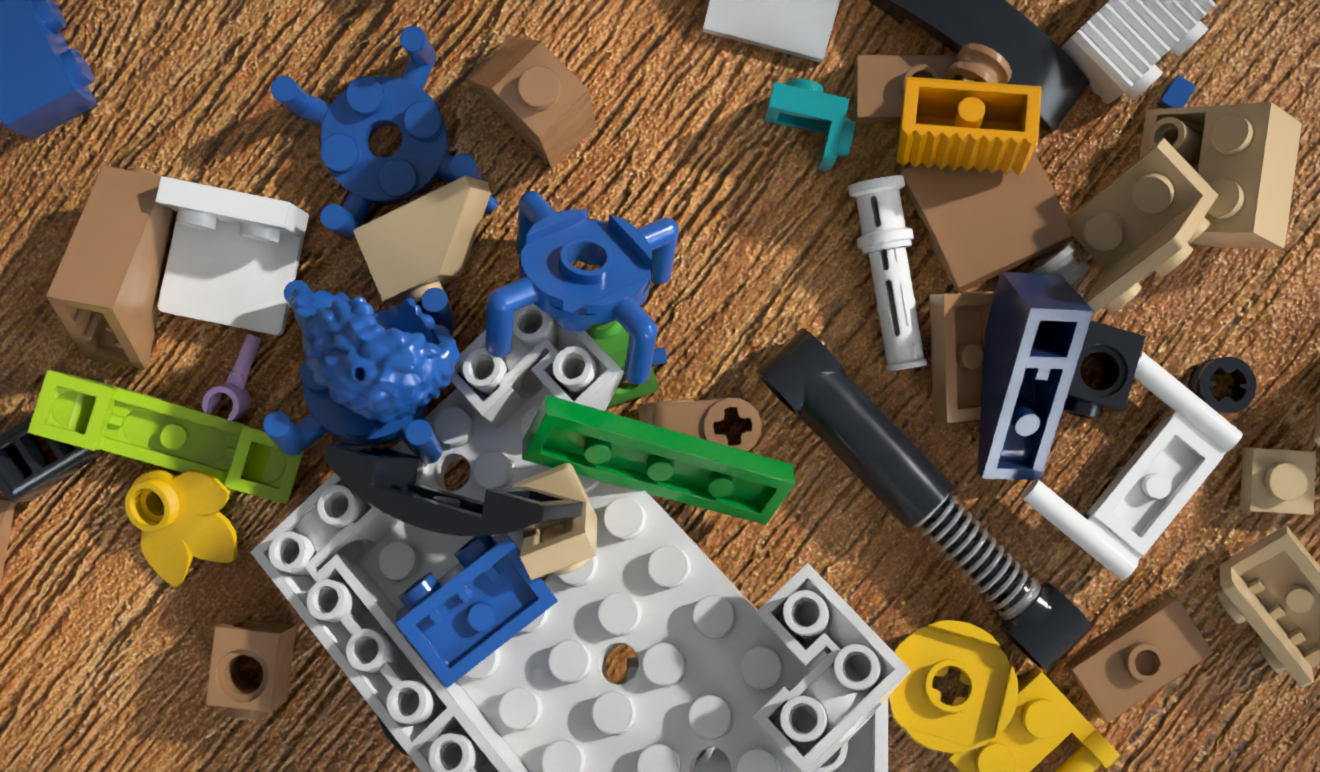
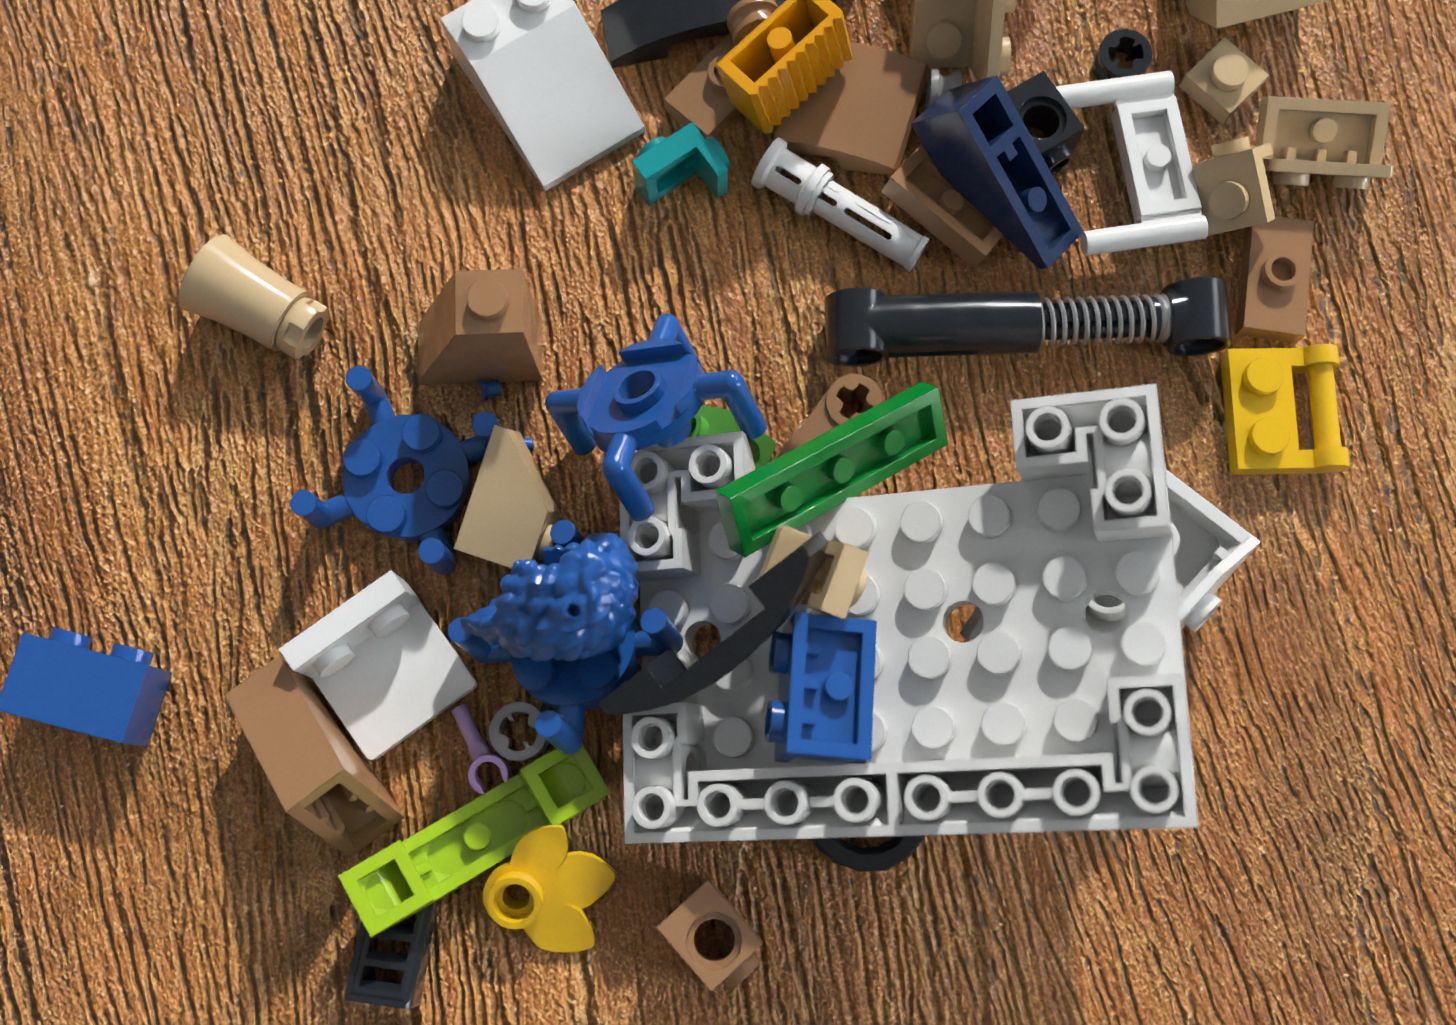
camera: 50 degrees left, 10 degrees down
(256, 391) = (504, 744): none -> light grey bush
(507, 137) = (489, 389): none -> blue piece
(982, 668) = (1223, 417): yellow plate -> none
(1186, 567) = (1234, 186): none -> tan bracket

